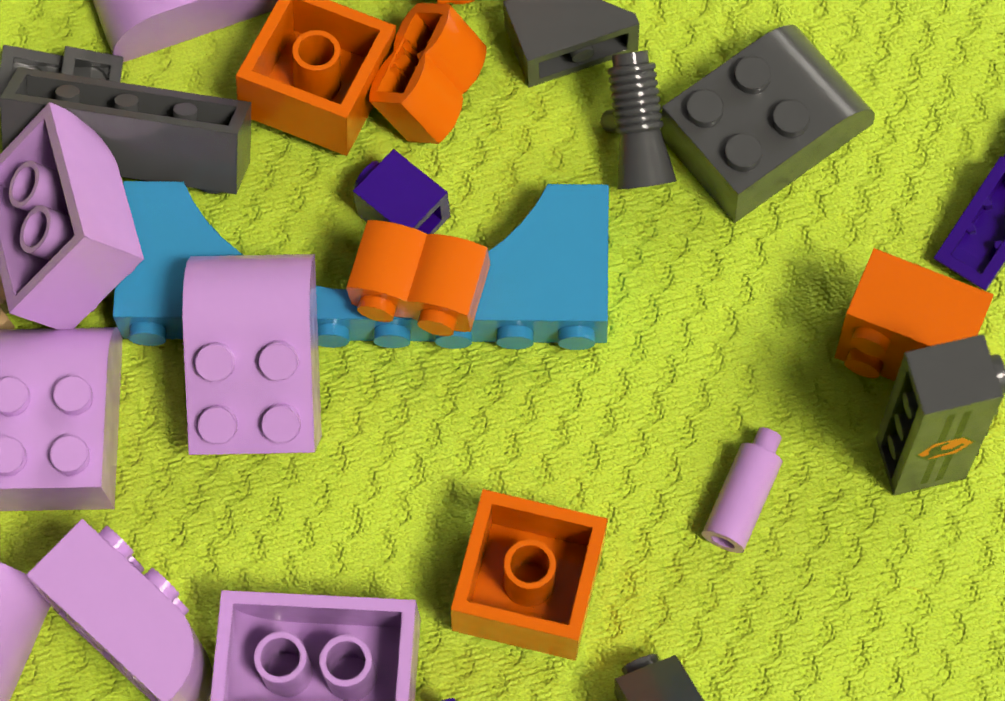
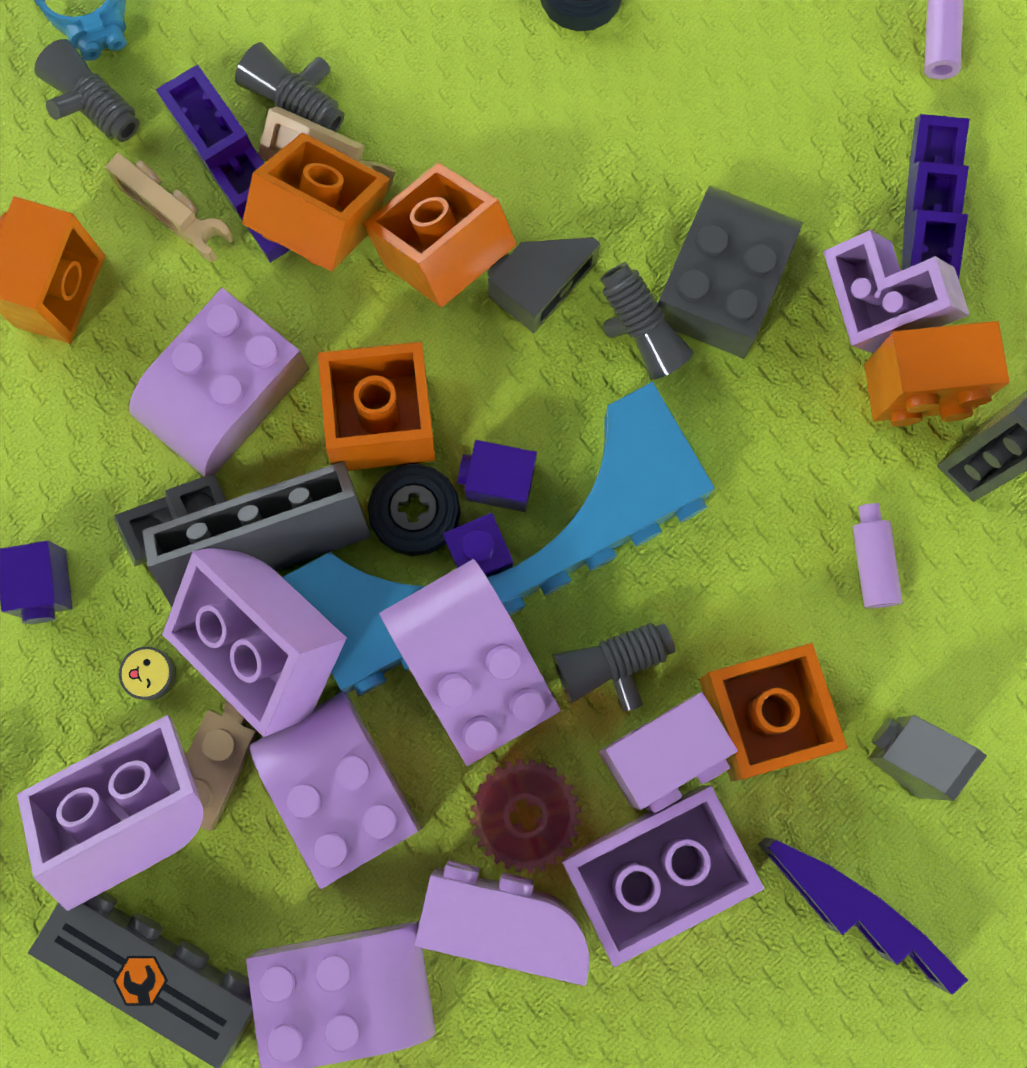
camera: 35 degrees left, 10 degrees up
(200, 510) = (511, 841): none -> clear pink brick
(304, 220) = (395, 491): none -> black bush
(334, 249) = (481, 542): none -> dark purple brick
(390, 543) = (669, 753): none -> lavender brick
(406, 442) = (615, 659): none -> dark grey piece
(418, 277) = (563, 534): orange brick -> none
(428, 73) = (462, 365): orange brick -> none
(911, 213) = (882, 298): none -> lavender brick

